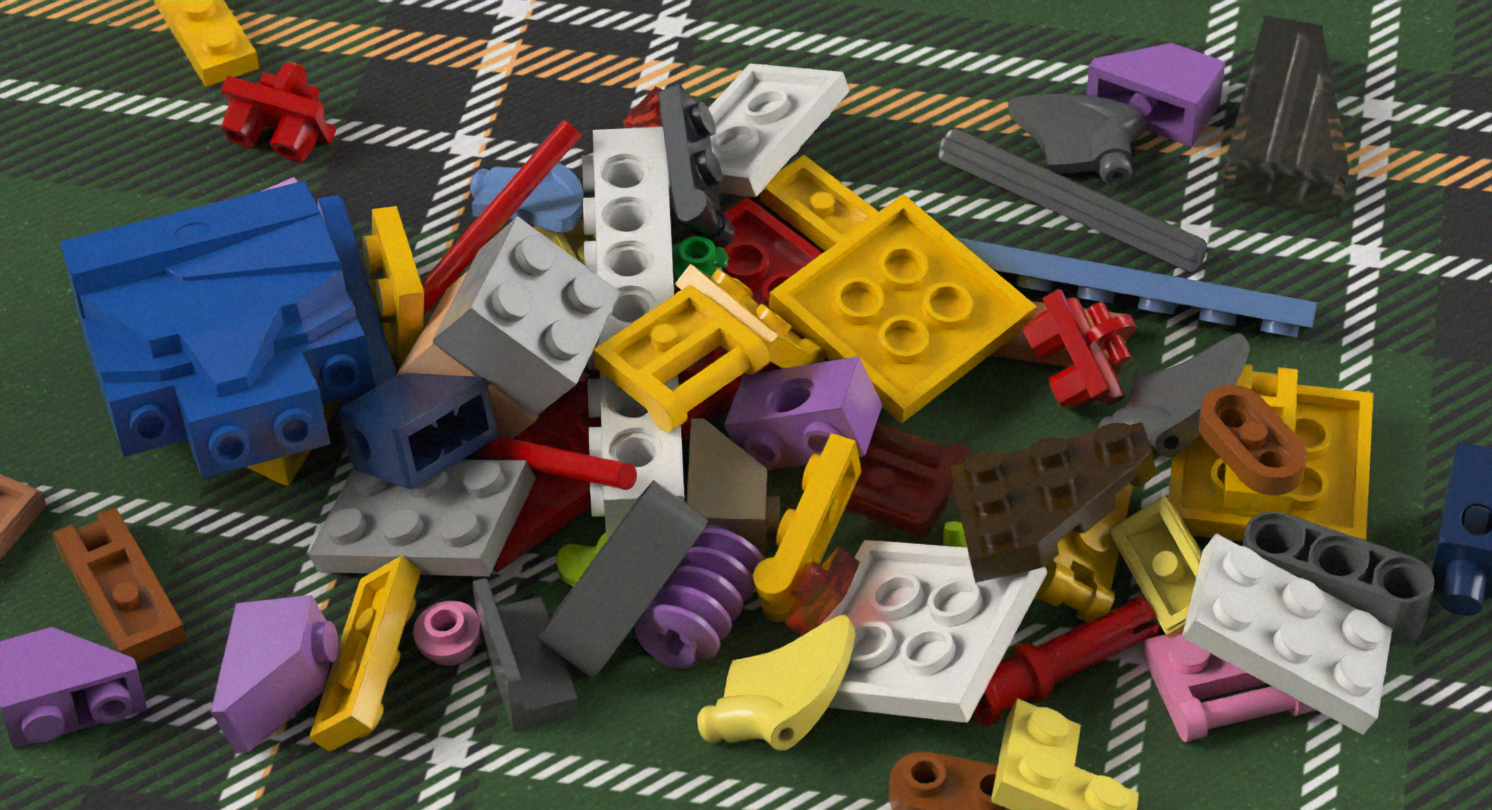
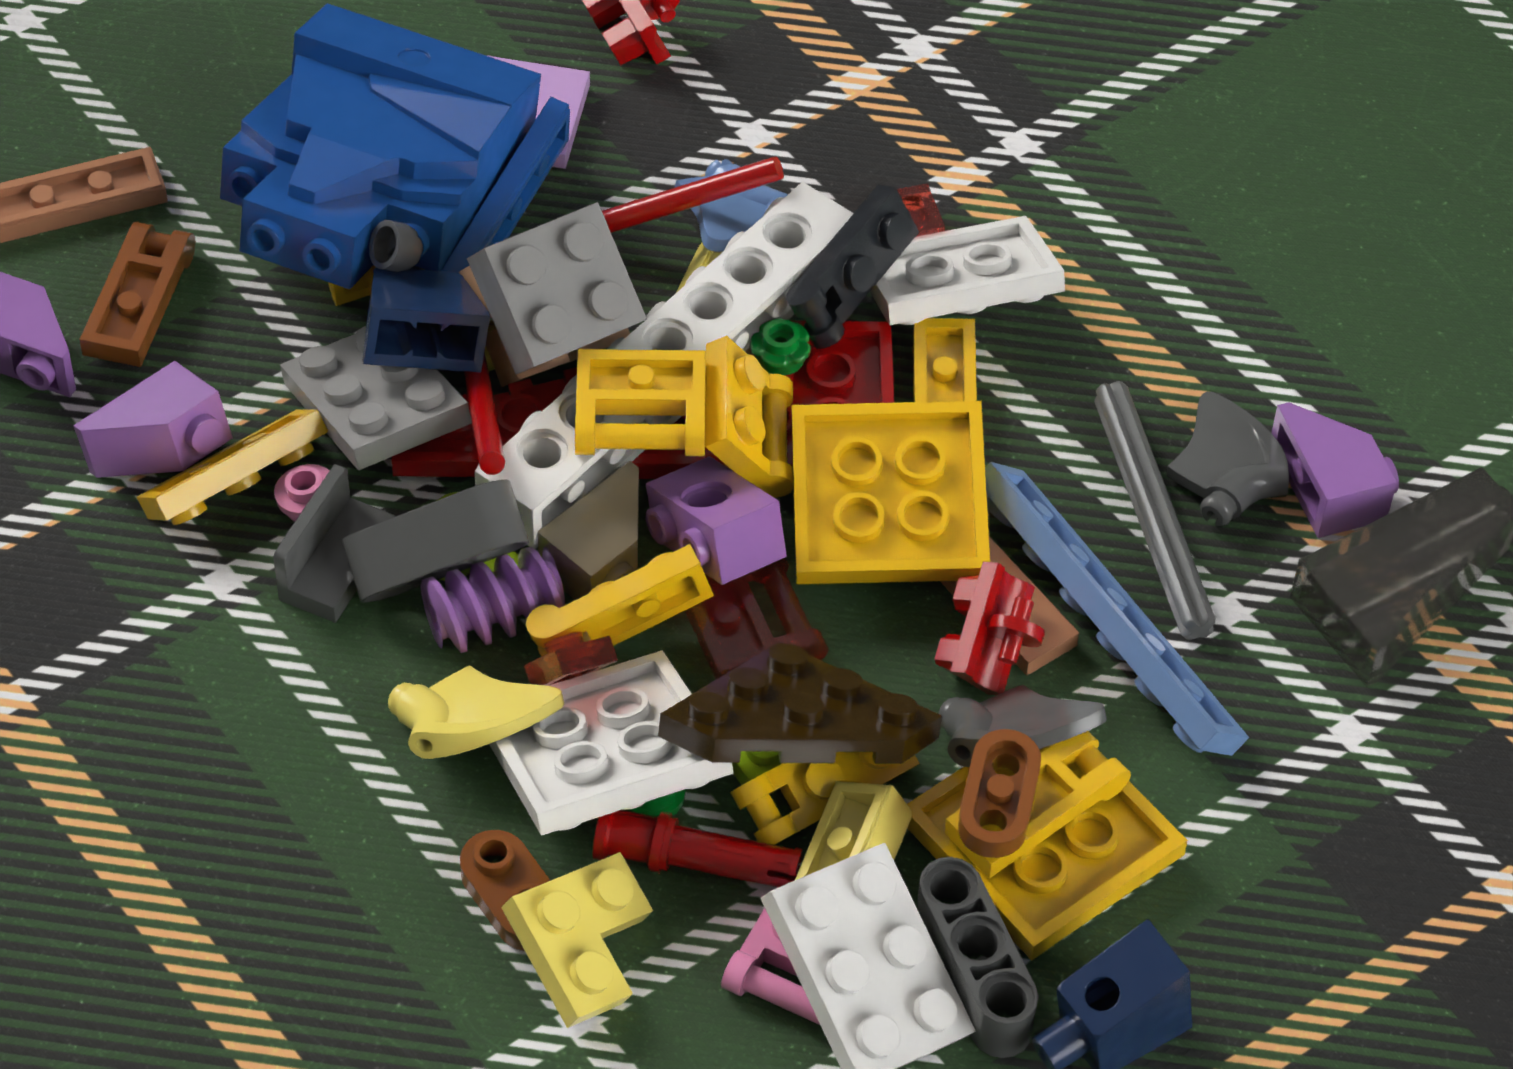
camera: 40 degrees right, 5 degrees up
(334, 378) = (395, 246): none -> dark grey hinge
(394, 282) = (543, 190): yellow plate -> none

